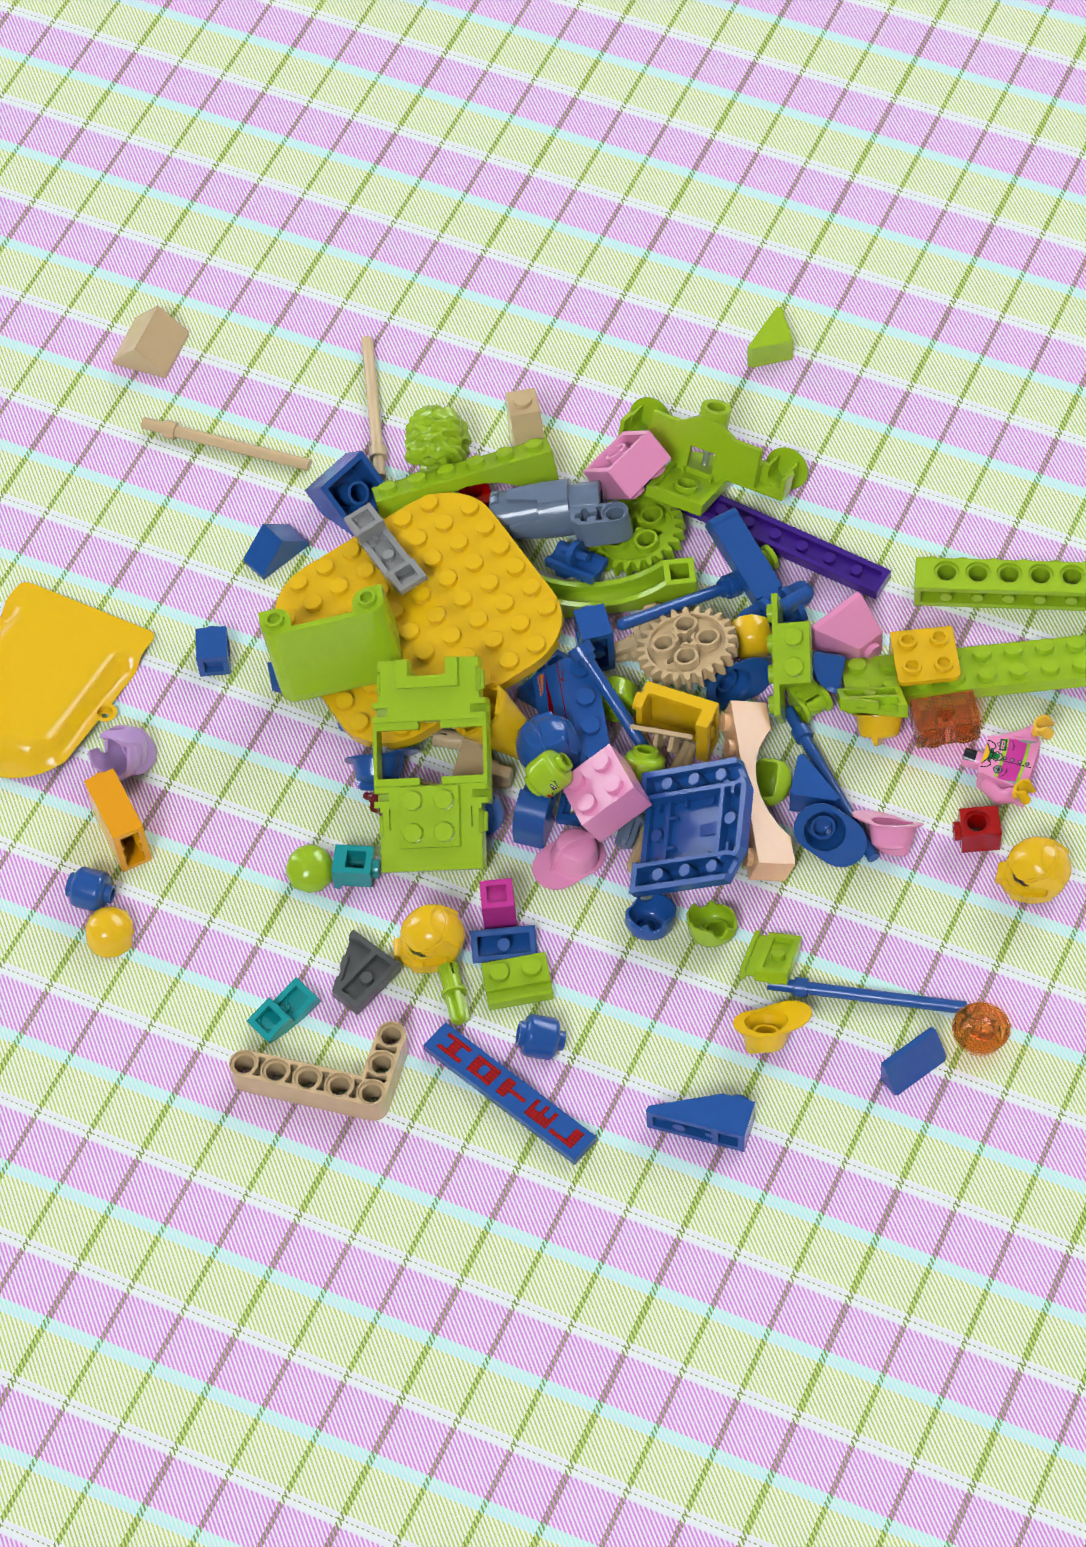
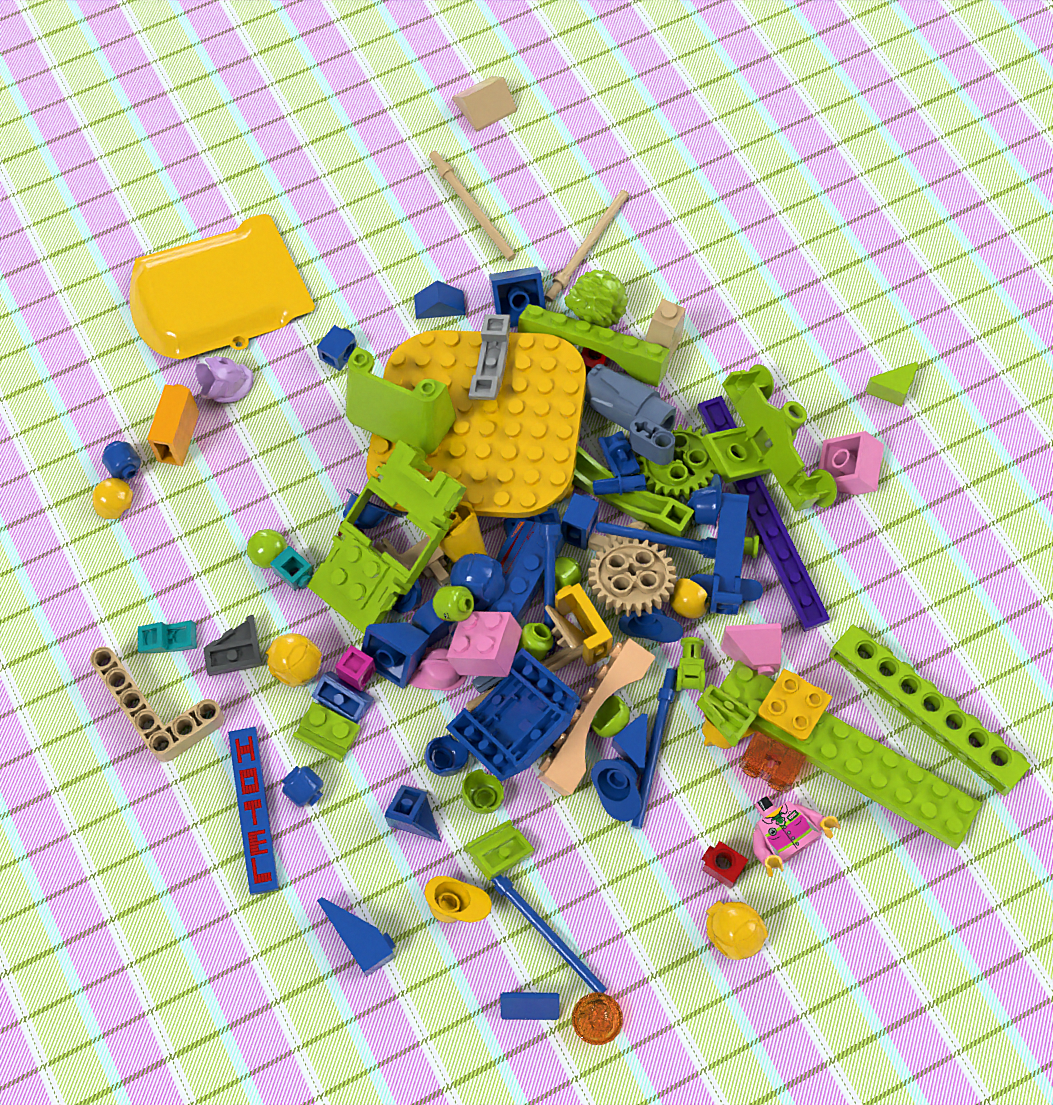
camera: 35 degrees right, 10 degrees up
(454, 993) = (278, 710): lime axle -> none
(525, 858) = (395, 650): none -> blue slope
(602, 584) = (619, 485): none -> blue axle
(628, 465) = (705, 410): bright pink brick -> none
(661, 992) = (412, 813): none -> blue slope
(699, 541) = (707, 503): none -> blue piece
(791, 656) = (694, 637): lime bracket -> none
(796, 425) = (853, 462): none -> bright pink slope
(828, 669) = (719, 661): blue brick -> none
(889, 832) = (662, 814): bright pink piece -> none

